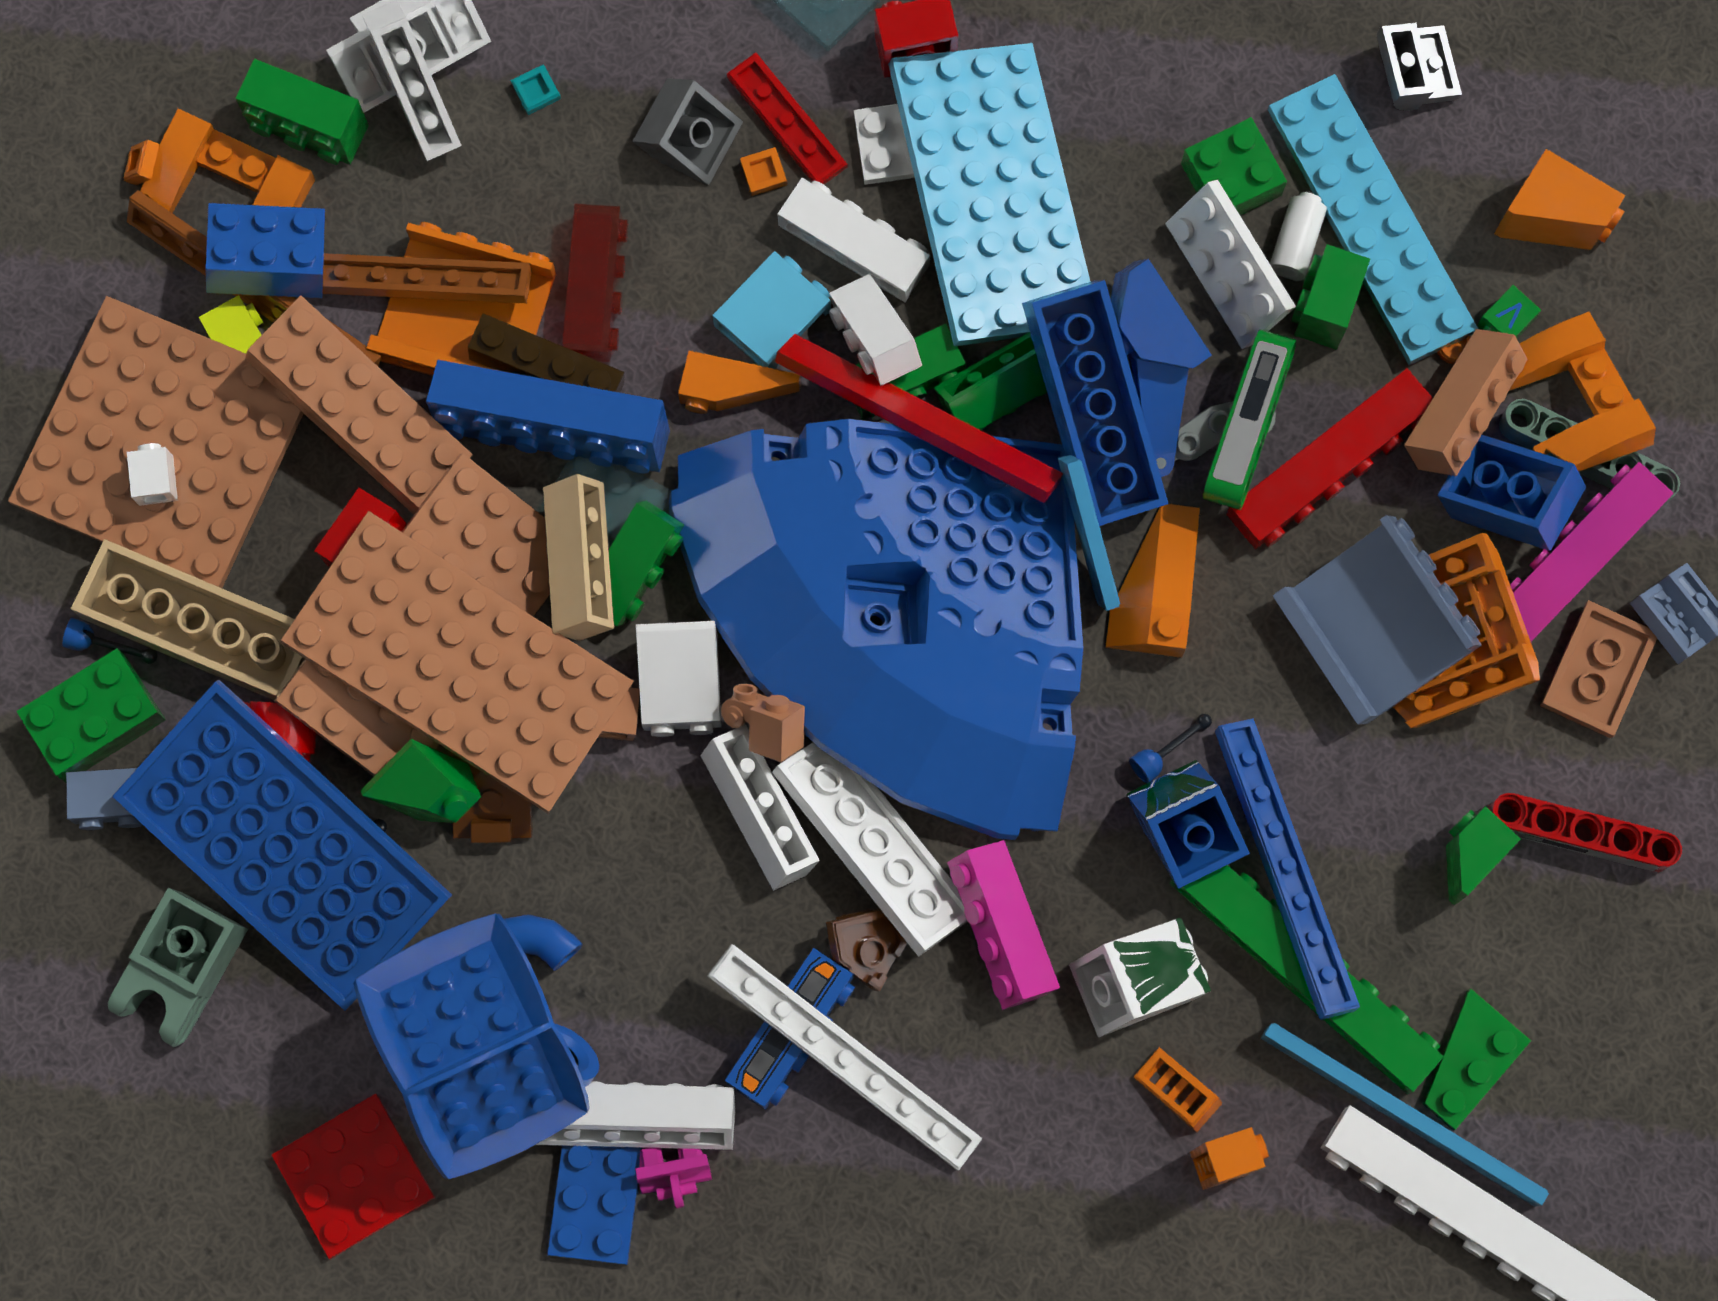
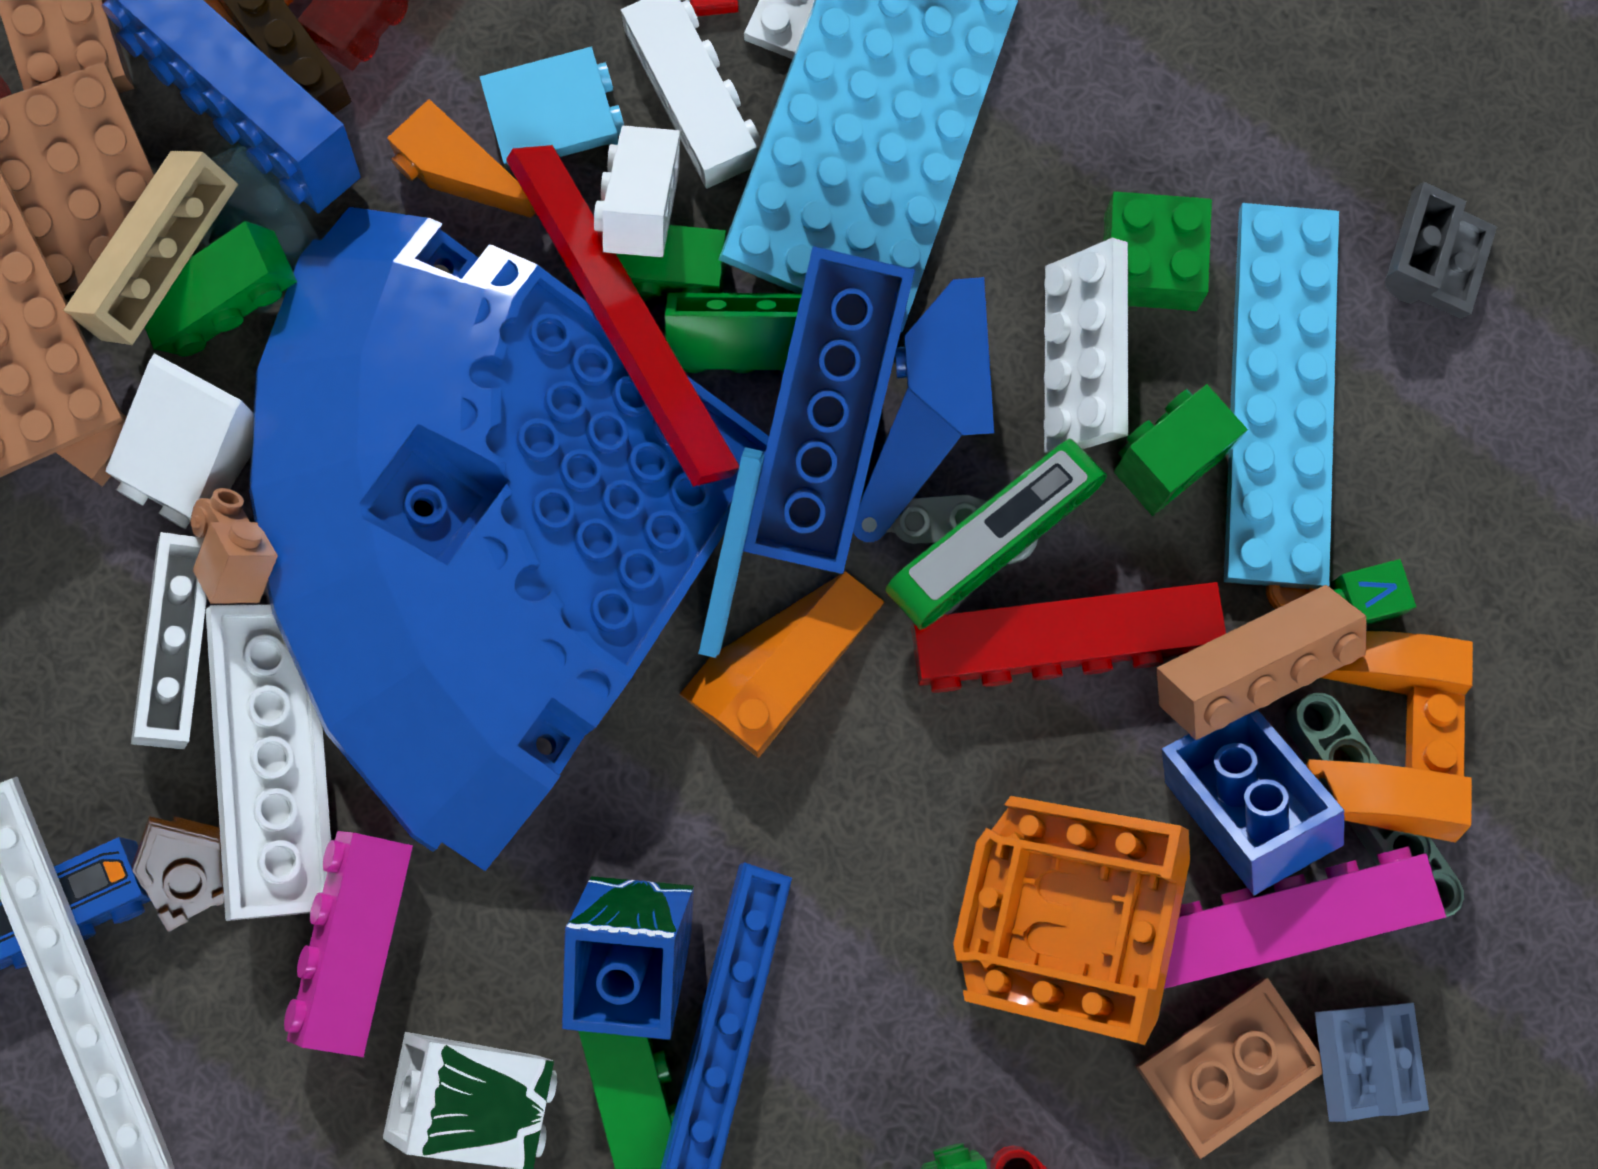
camera: 30 degrees right, 0 degrees up
(1149, 764) = (642, 856): hinge -> none
(1298, 236) = (1185, 363): white brick -> none
(1379, 621) = (1001, 855): sand blue panel -> none
(1562, 207) = (1512, 502): orange slope -> none

